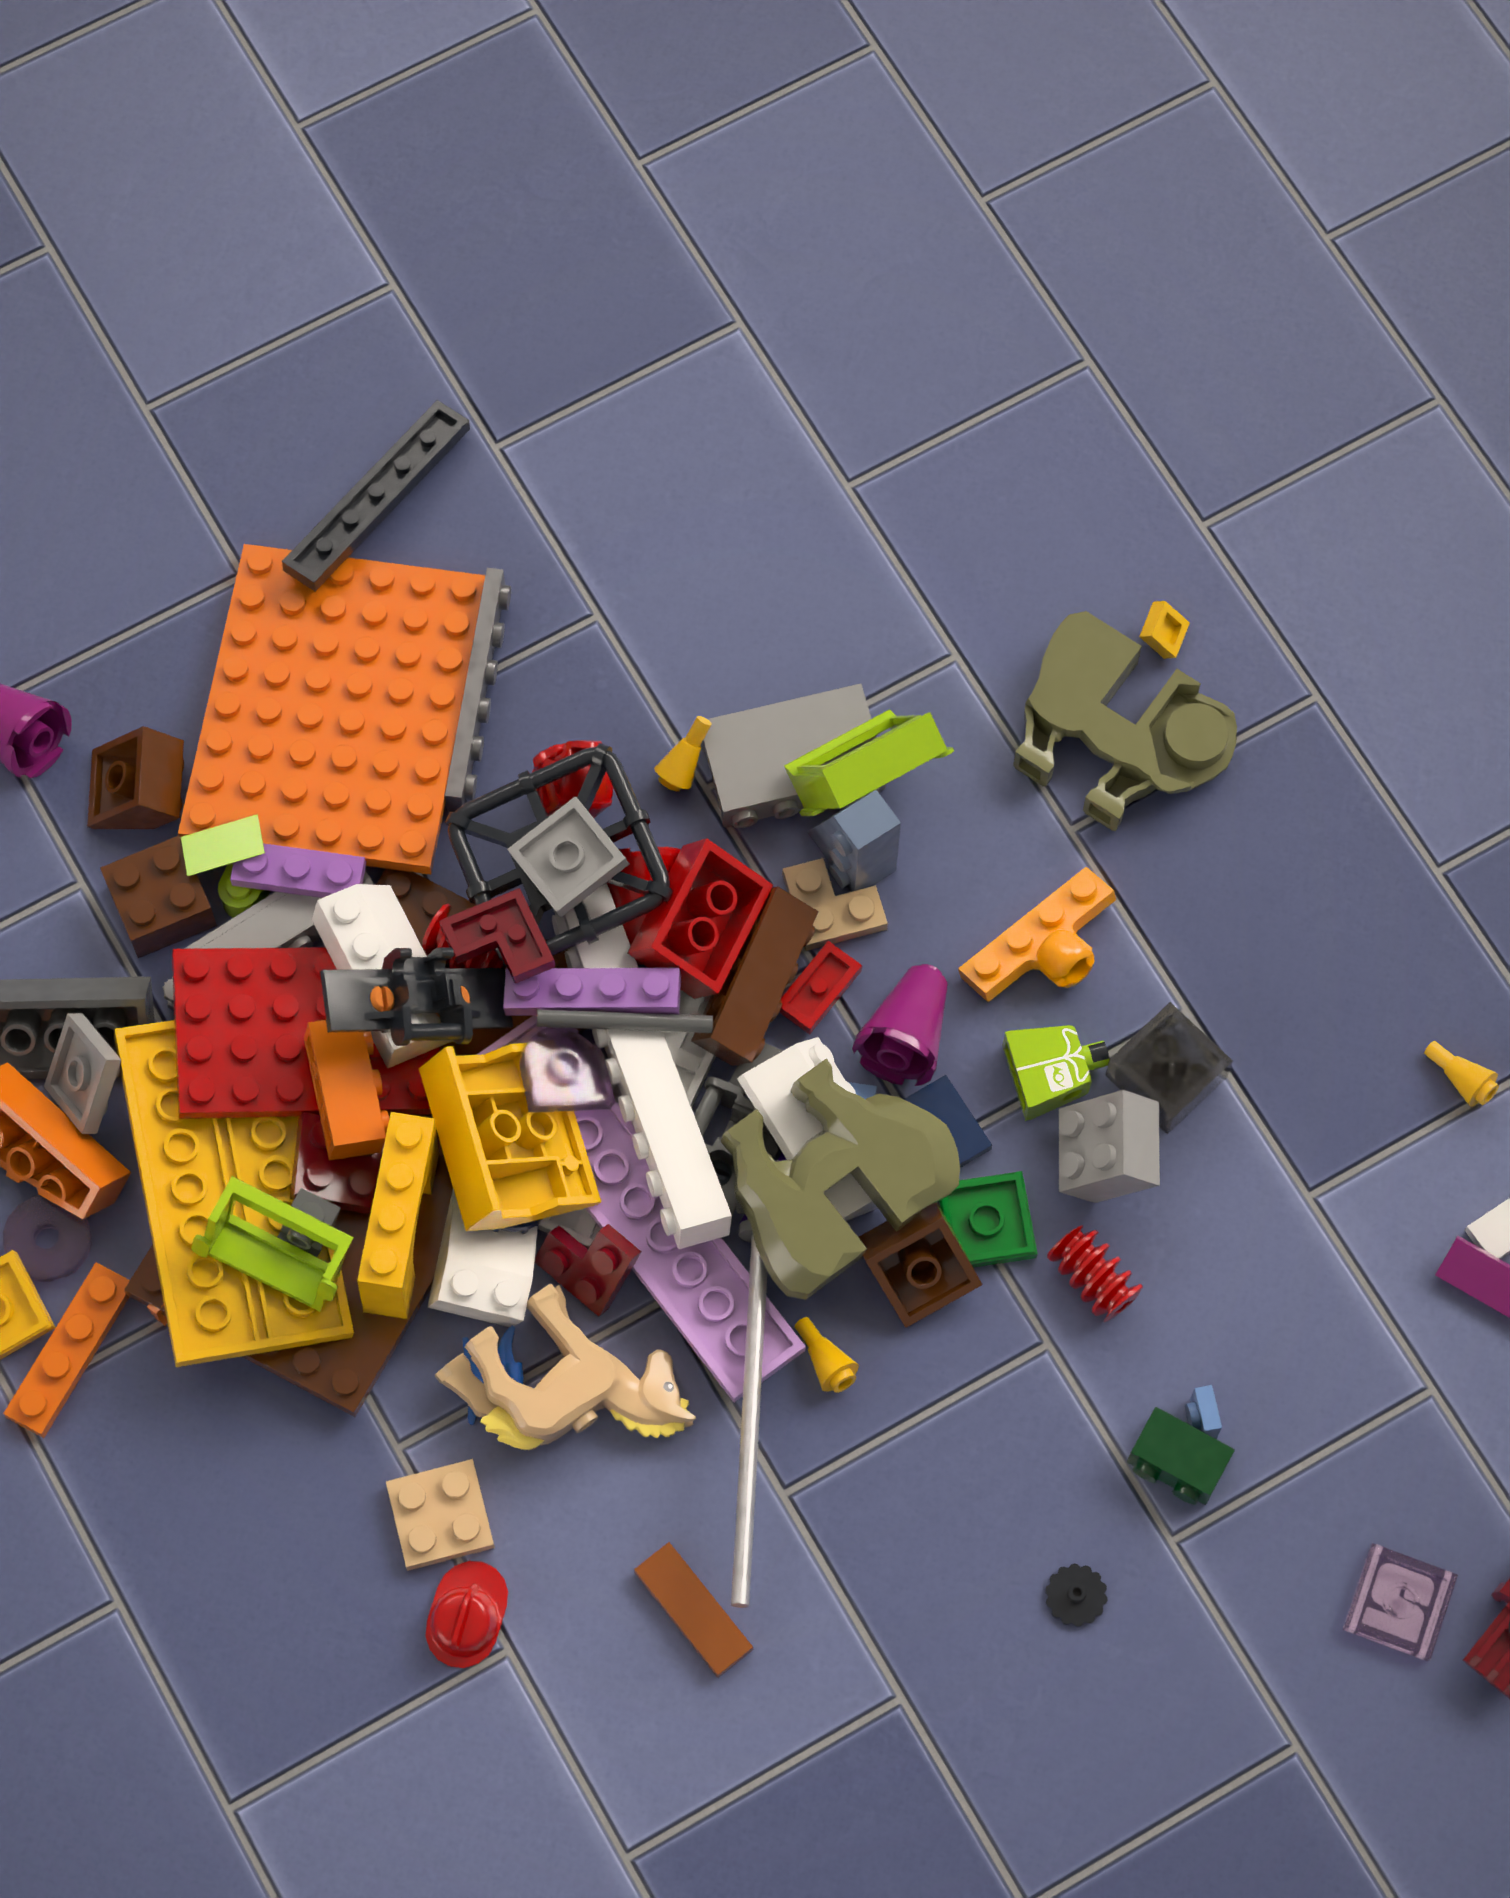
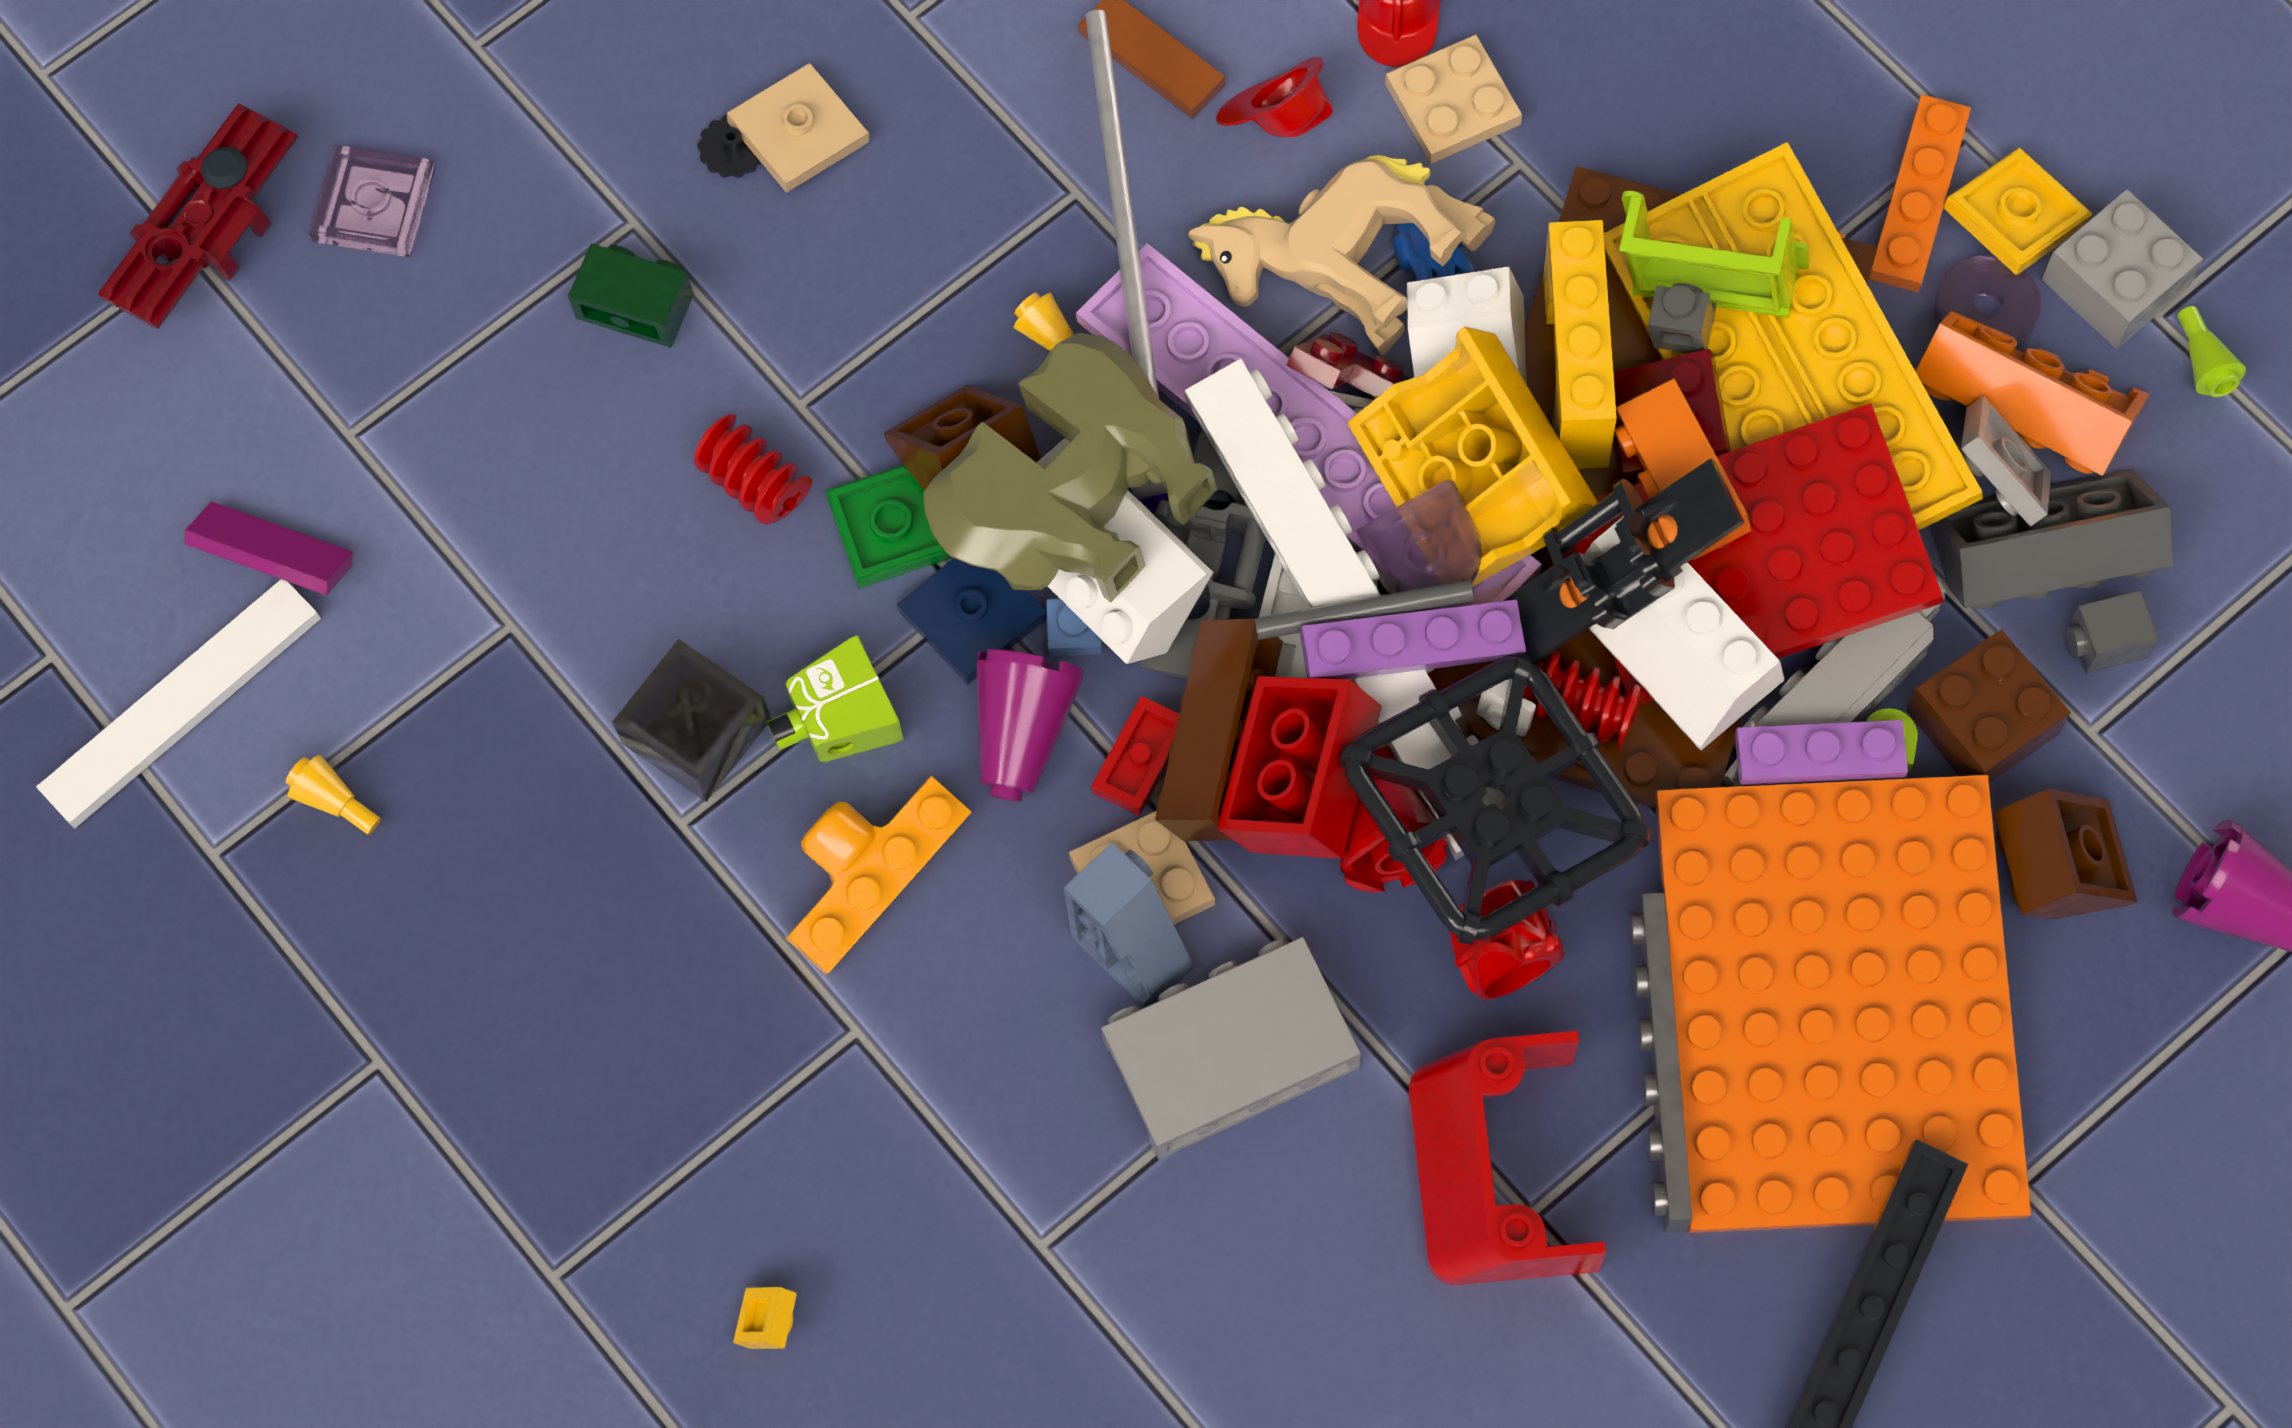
camera: 175 degrees right, 0 degrees up
(43, 942) = (2111, 632): none -> dark grey brick
(222, 845) = (1924, 757): sticker -> none
(504, 925) = (1535, 681): dark red plate -> none
(568, 856) = (1479, 769): light grey plate -> none
(597, 1530) = (1283, 104): none -> red piece
(638, 684) = (1463, 1228): none -> red windscreen
(679, 765) = (1374, 1002): yellow cone -> none
(903, 748) = (1104, 973): lime piece -> none
(1016, 1595) = (798, 127): none -> tan plate
(1109, 1146) = (752, 600): light grey brick -> none
(1171, 748) = (743, 1140): olive animal -> none
(1203, 1411) = (610, 343): medium blue plate -> none

